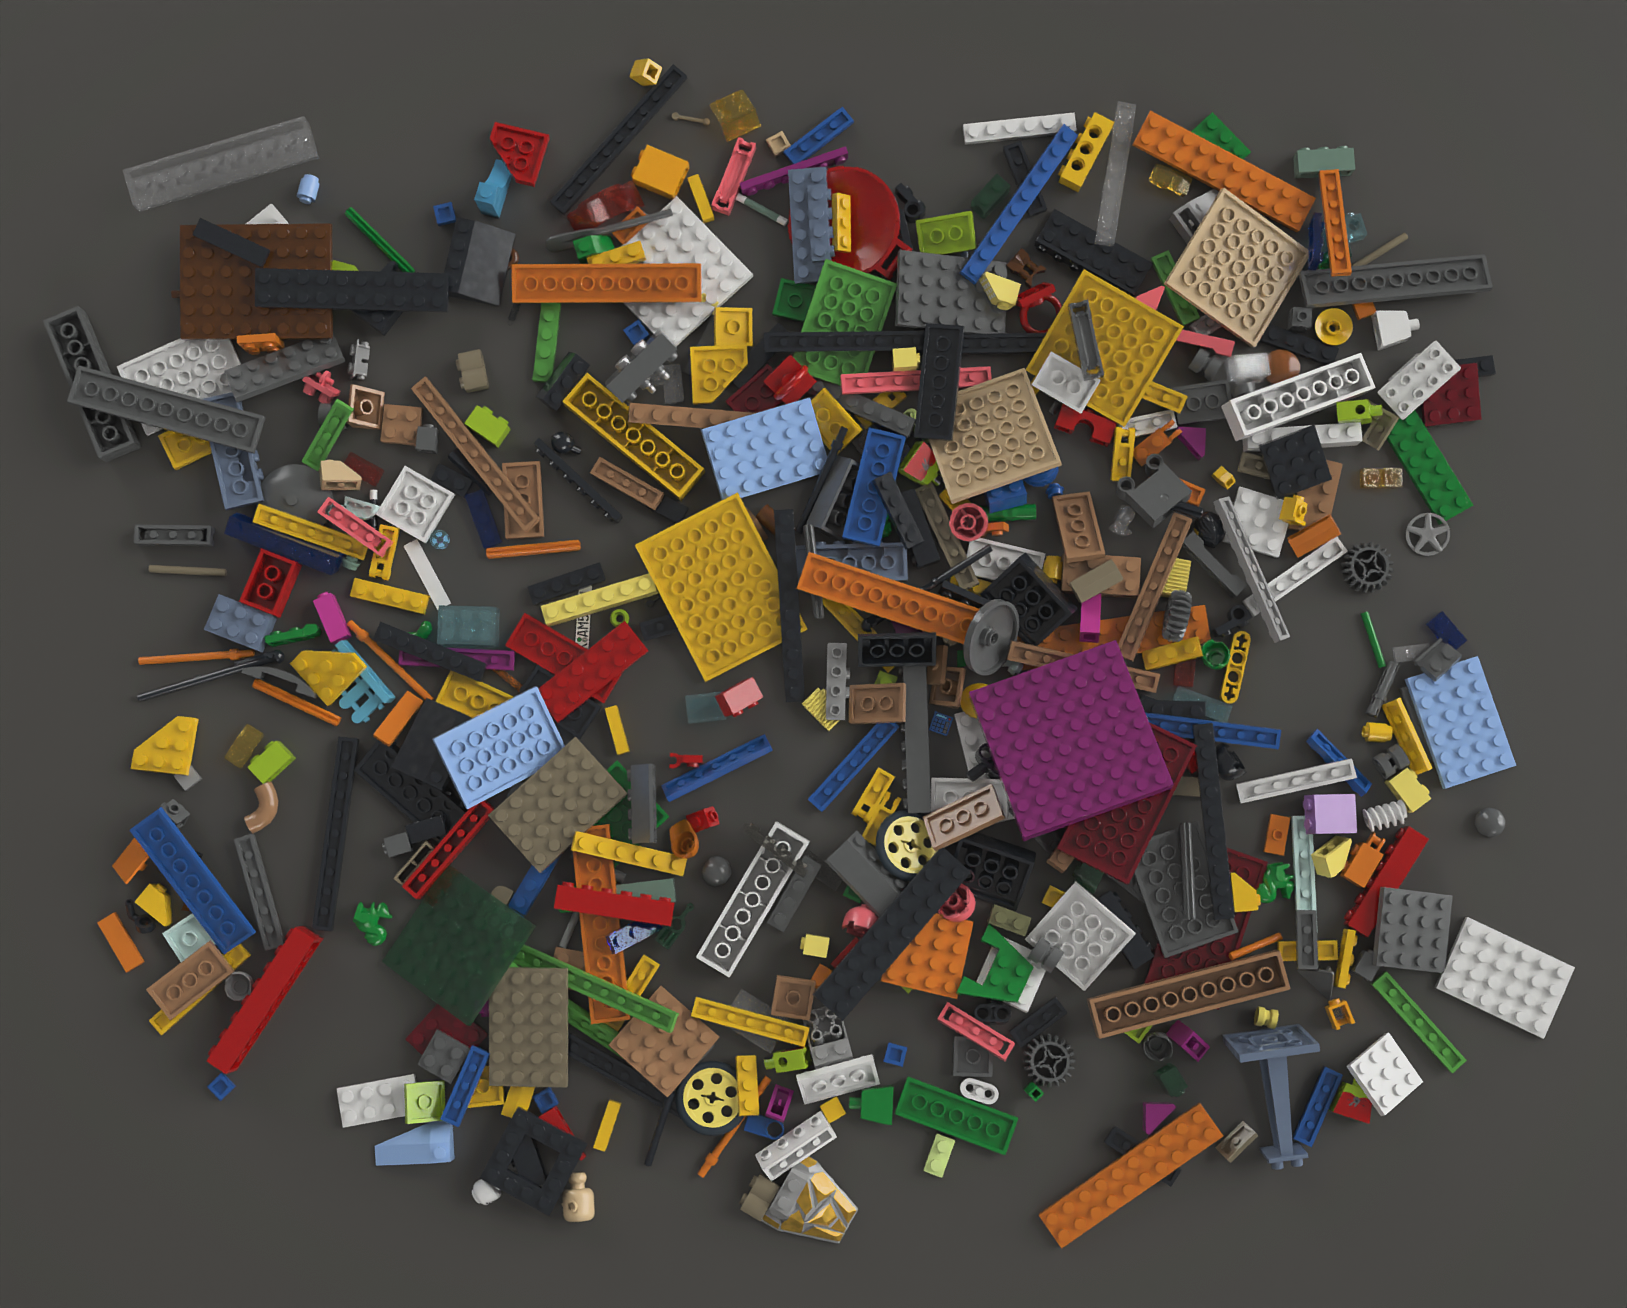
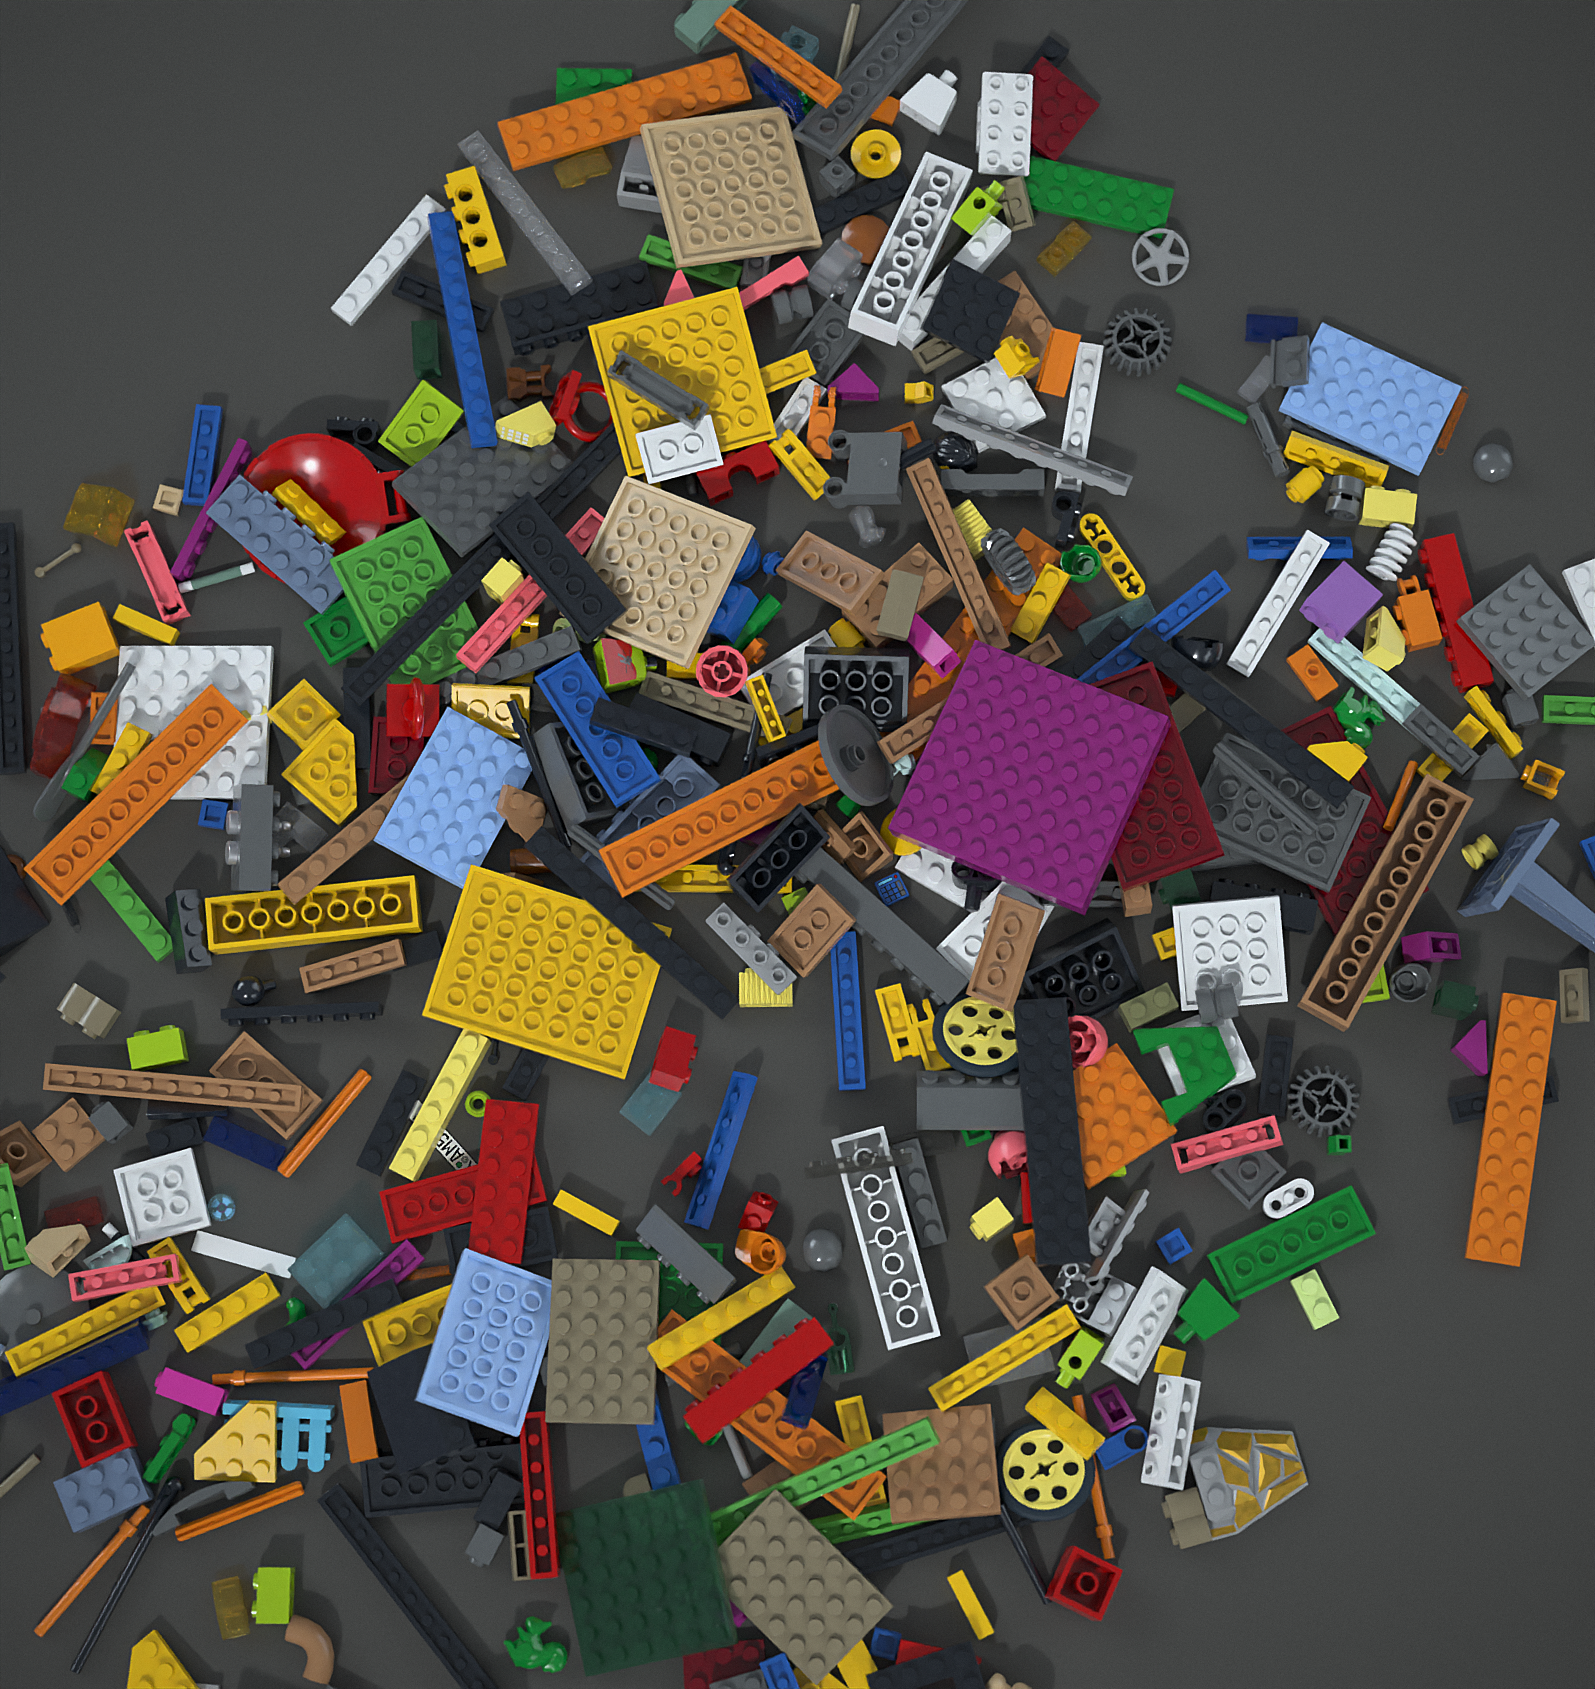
camera: 40 degrees left, 5 degrees down
(673, 1175) = (1083, 1583): none -> red brick
(792, 490) = (521, 810): none -> medium nougat wing
(869, 1012) = (1108, 1228): none -> light grey bracket
(970, 565) = (765, 708): none -> yellow piece
(1491, 777) = (1454, 424): none -> orange piece

